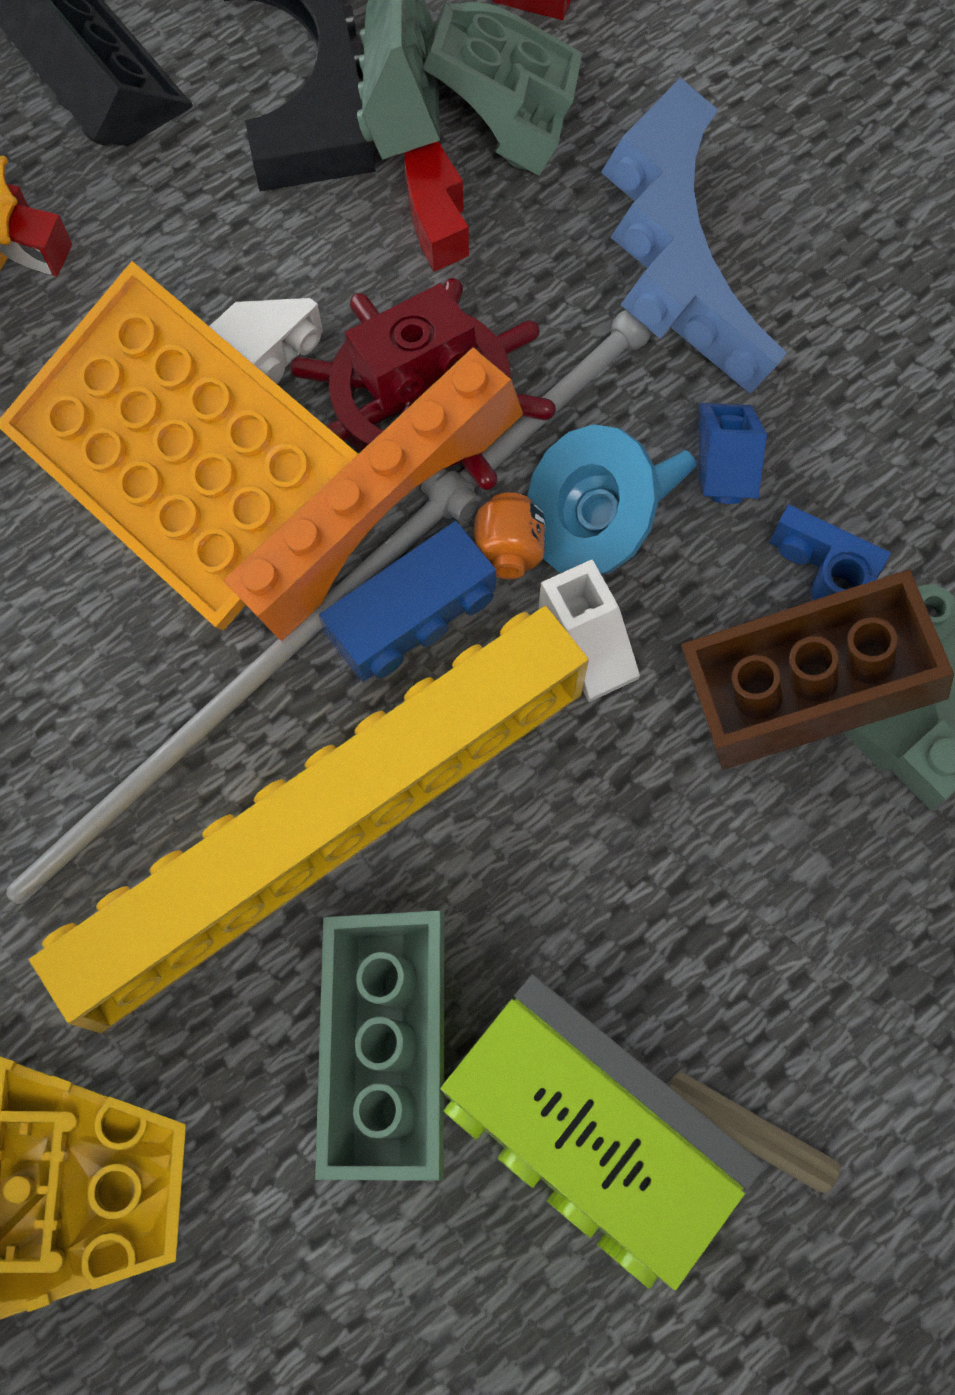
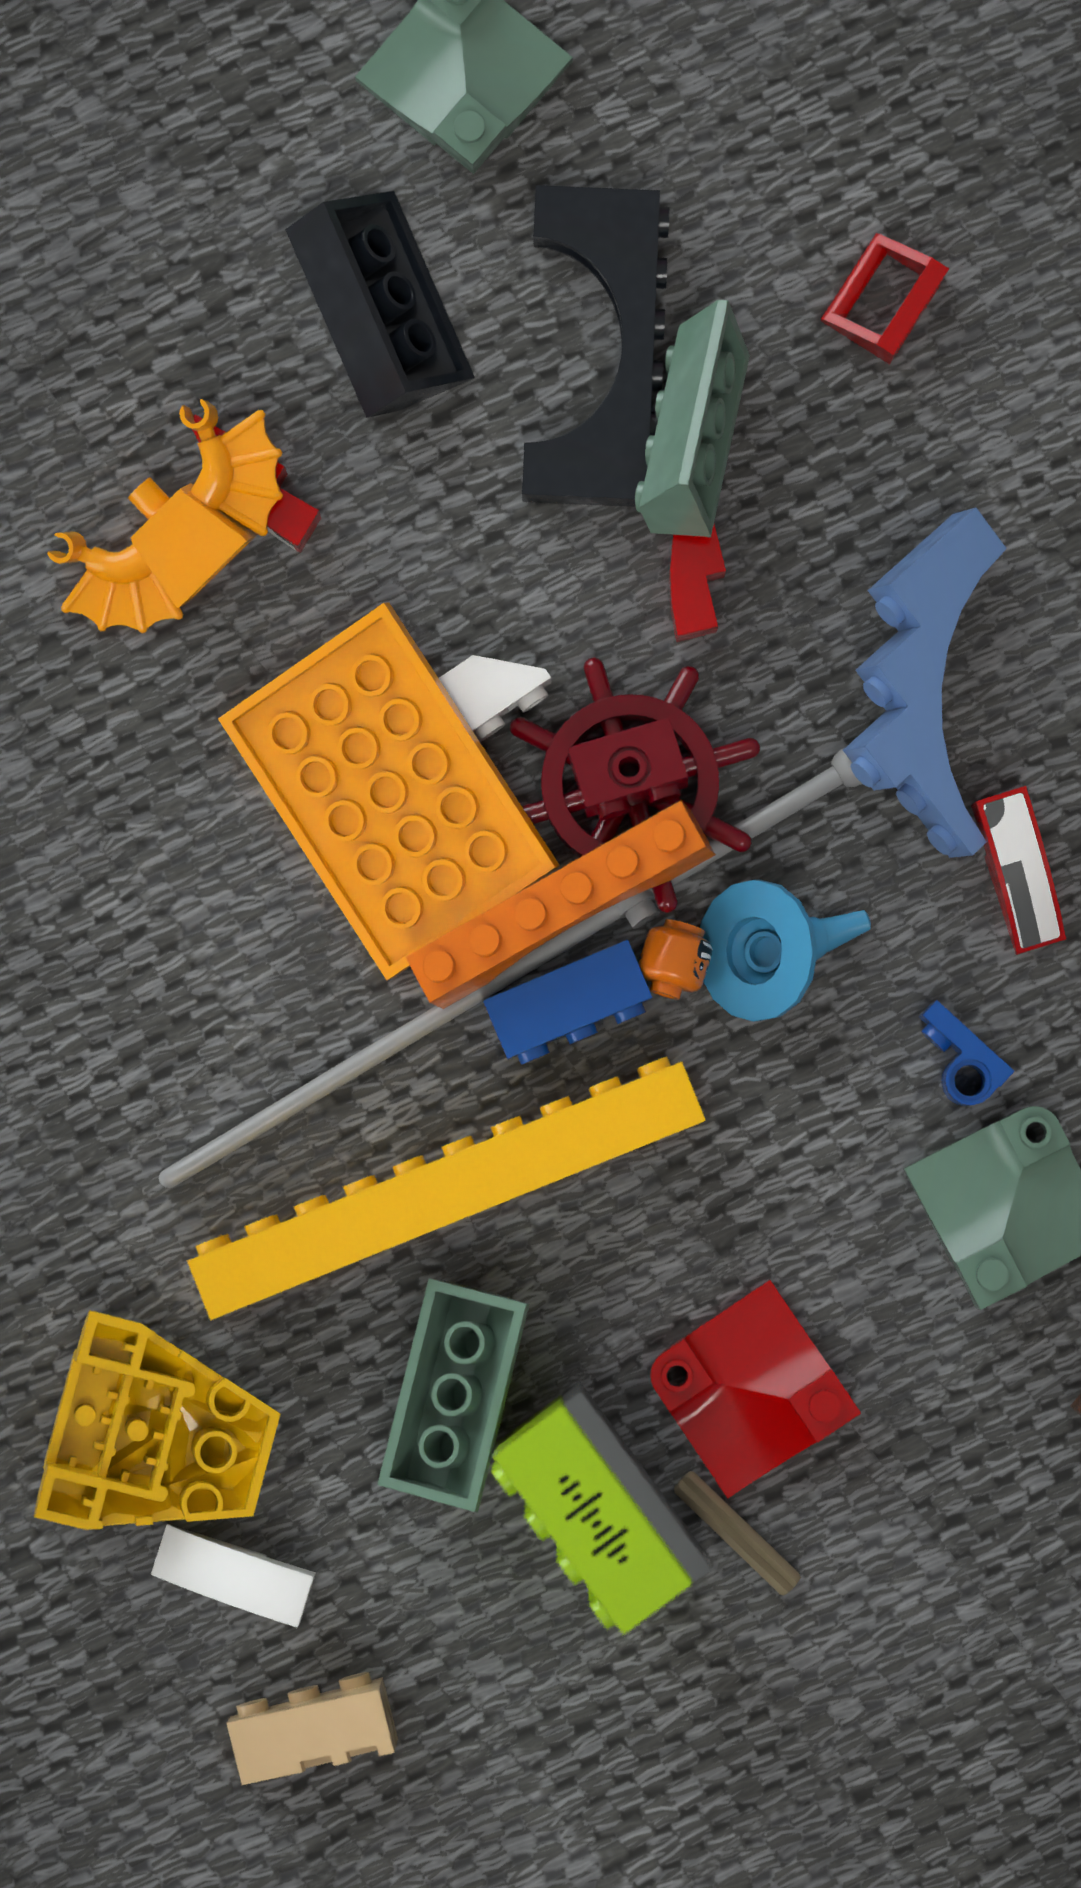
camera: 15 degrees right, 15 degrees up
(170, 1346) = (233, 1575): none -> white slope
(508, 74) = (801, 450): sand green slope -> none
(595, 623) = (722, 1074): white slope -> none
(720, 962) = (751, 1389): none -> red slope
(730, 452) = (906, 919): blue slope -> none
(818, 669) = (905, 1168): reddish brown brick -> none
(825, 377) = (1019, 869): none -> slope

